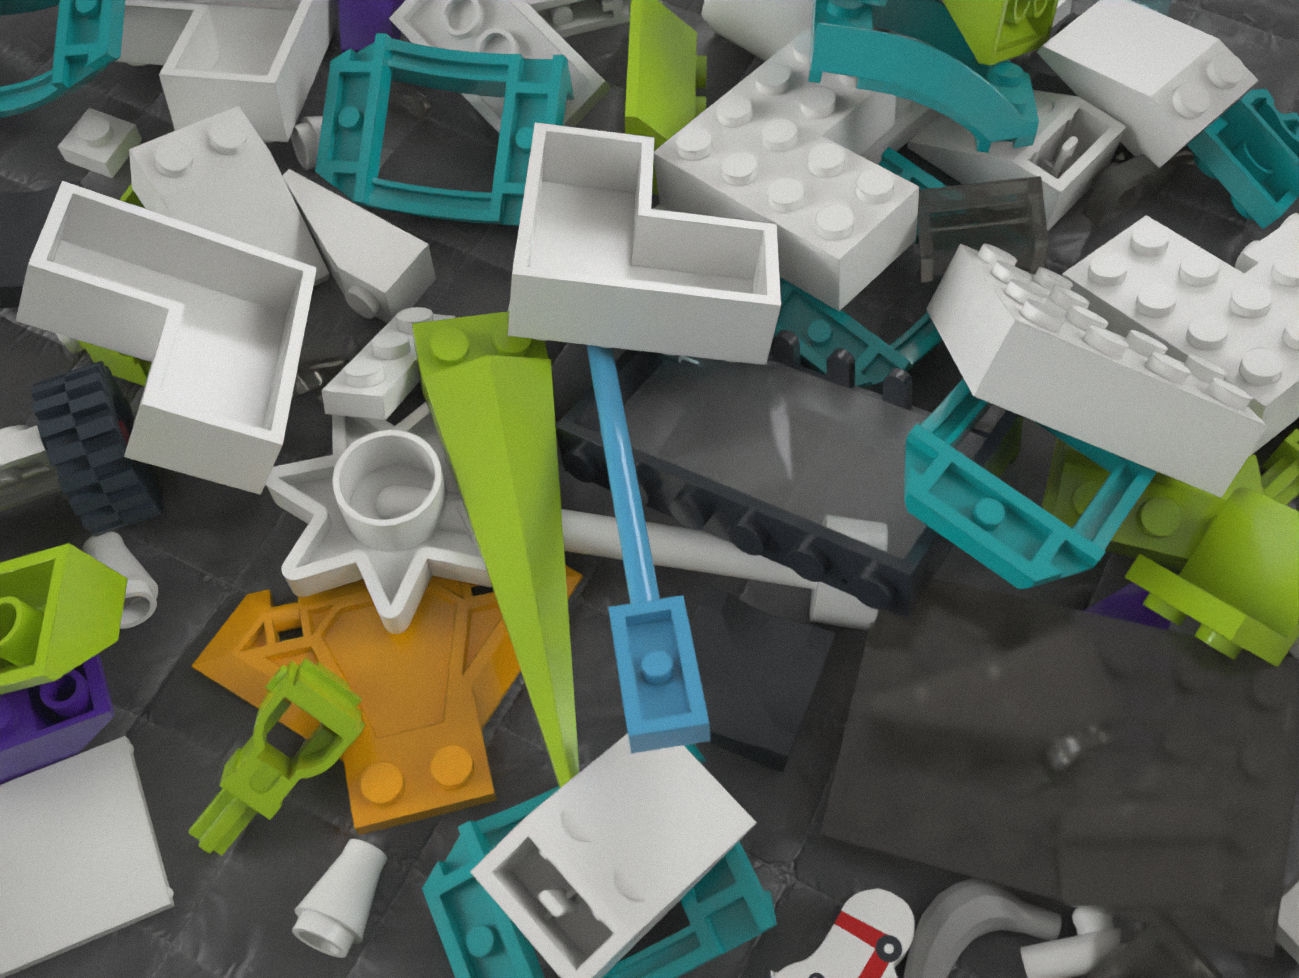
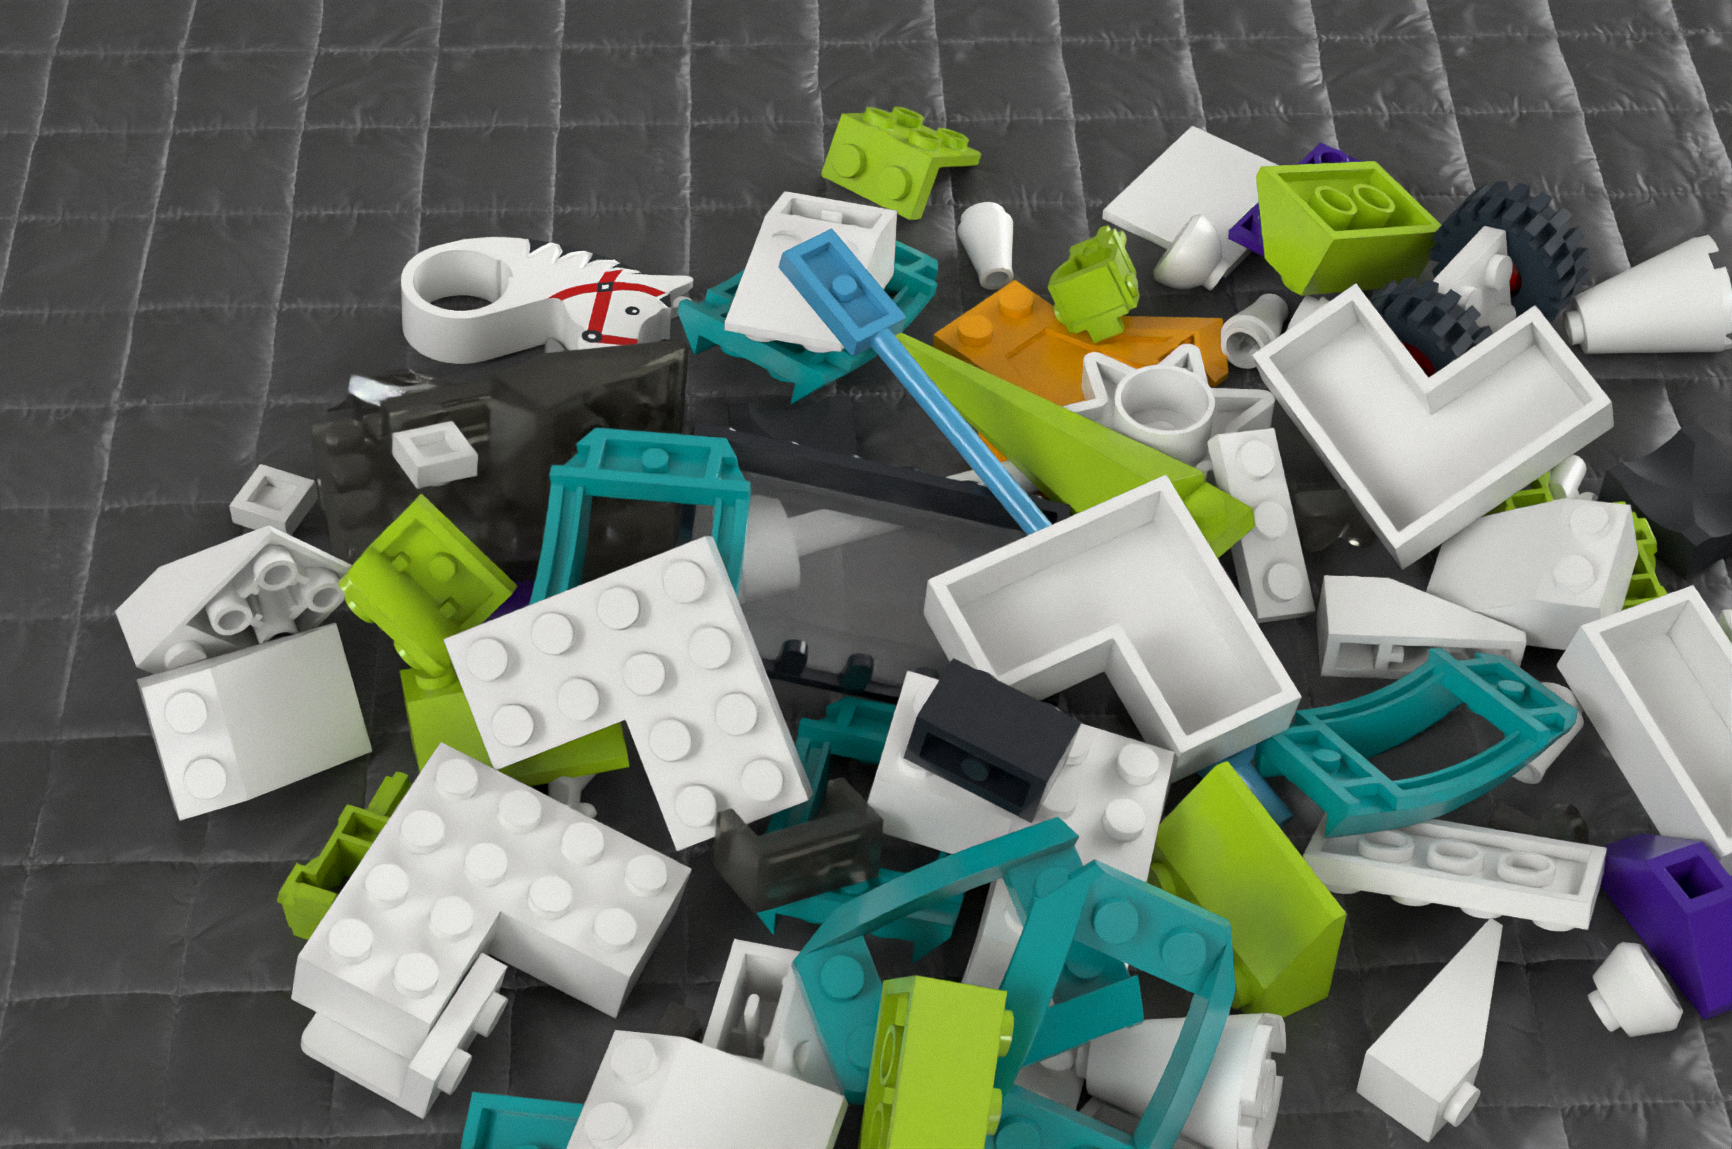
camera: 150 degrees right, 15 degrees down
(156, 754) = (1193, 257): none -> white brick
(180, 620) = (1253, 329): none -> white cone
(823, 140) = (992, 739): none -> black brick
(1167, 767) = (434, 454): none -> white plate

